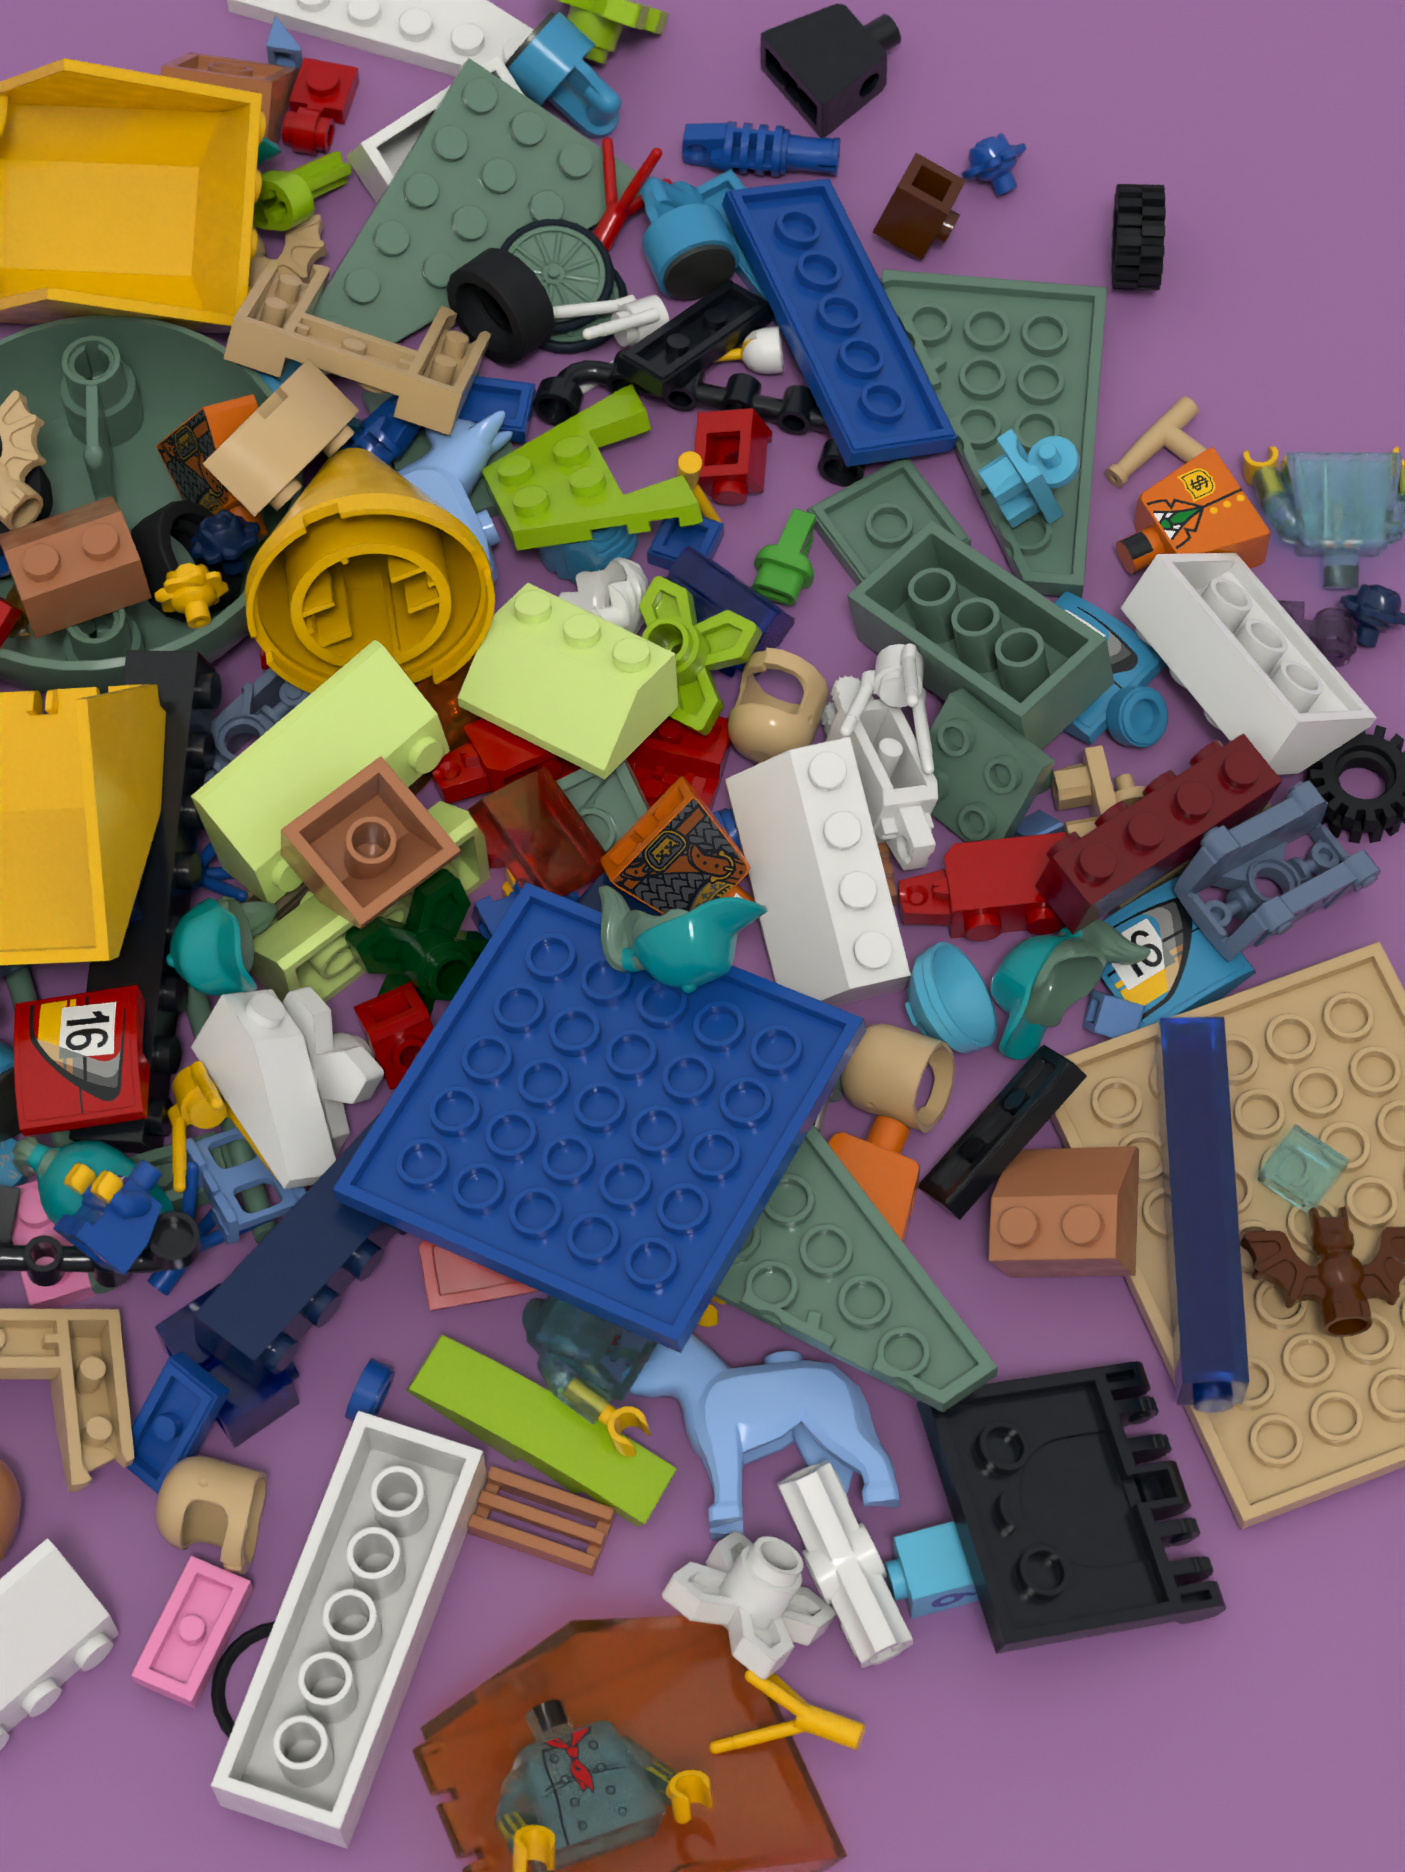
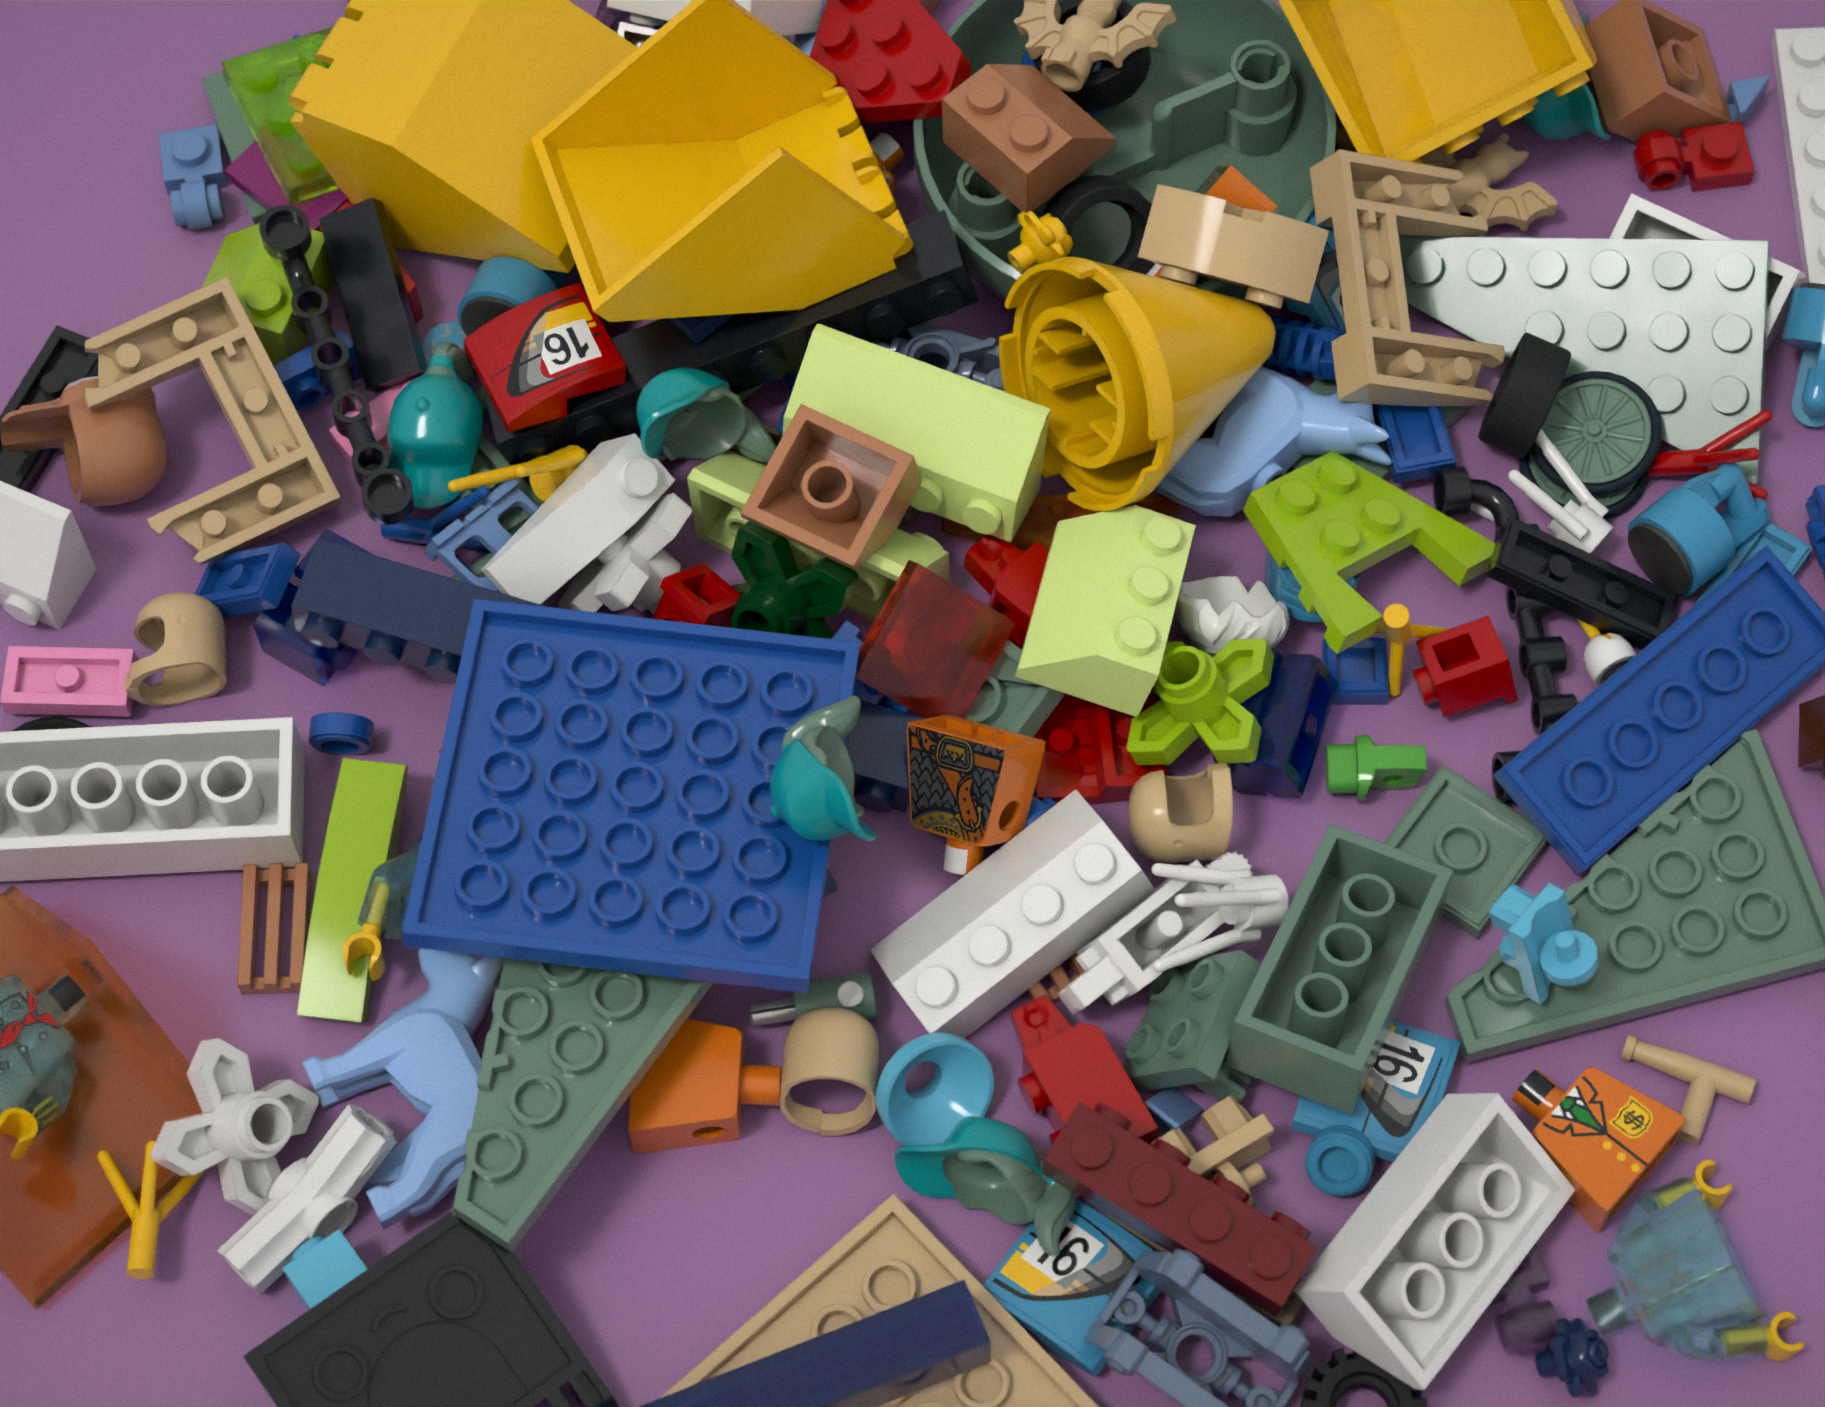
camera: 70 degrees right, 0 degrees up
(114, 1214) = (383, 431): blue piece -> none
(225, 540) = (1121, 249): dark blue plant -> none
(289, 196) = (1552, 157): lime piece -> none
(1001, 1131) = (805, 1184): black tile -> none
(1066, 1213) = (738, 1272): nougat slope -> none
(1112, 1015) = (987, 1253): medium blue piece -> none

